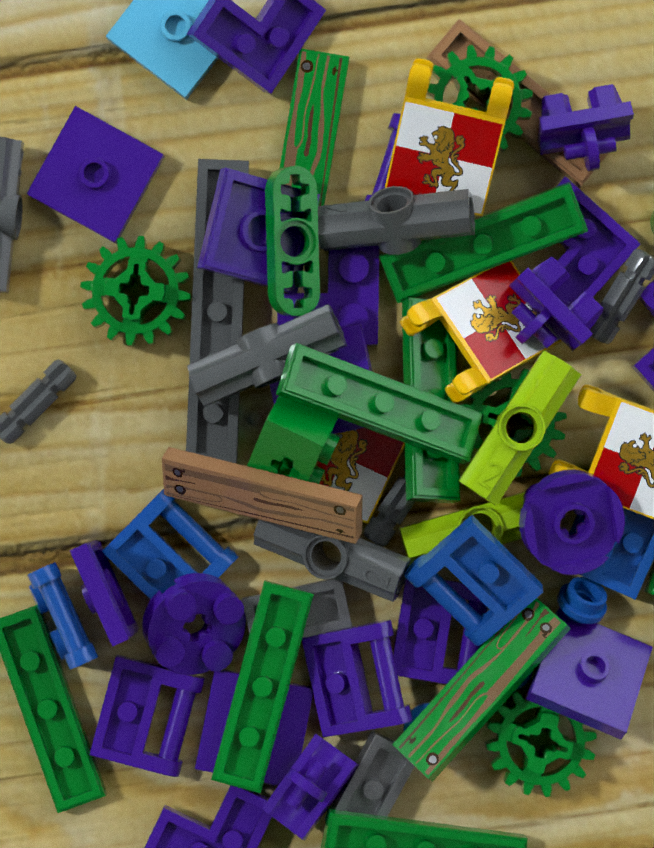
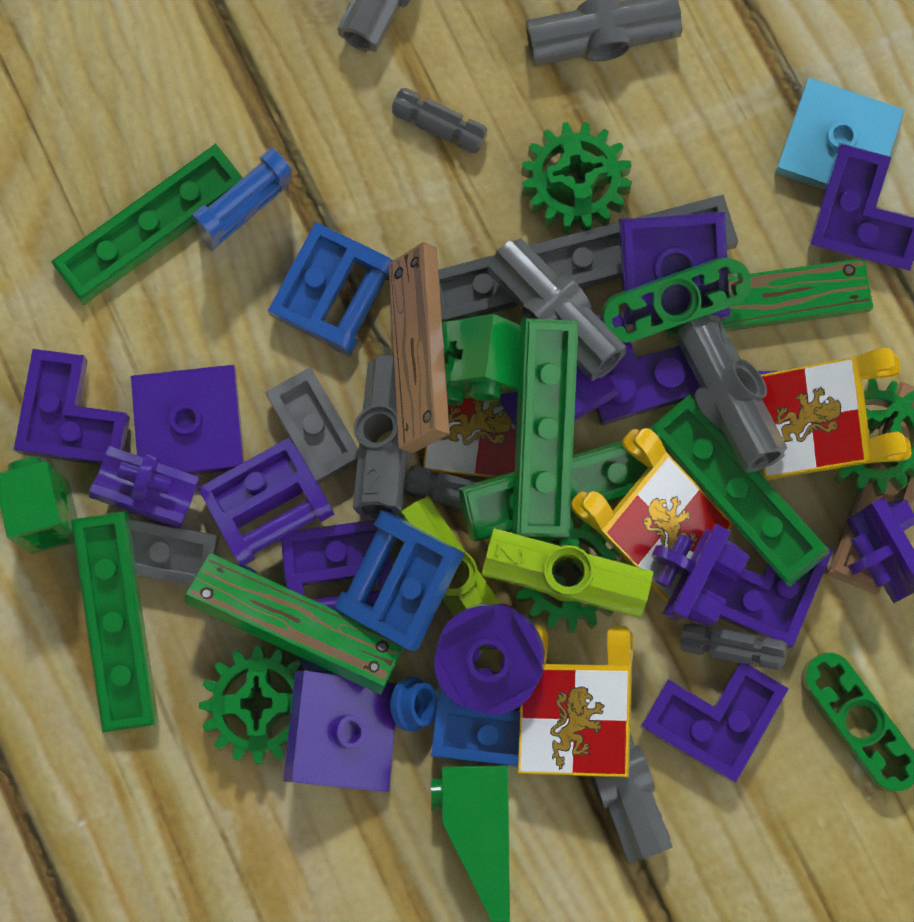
camera: 75 degrees right, 10 degrees down
(95, 174) = (674, 110): dark purple plate -> none
(104, 592) = (276, 230): dark purple plate -> none
(130, 711) = (166, 298): dark purple plate -> none
(210, 646) = (287, 305): dark purple plate -> none
(262, 686) = (230, 410): green tile -> none

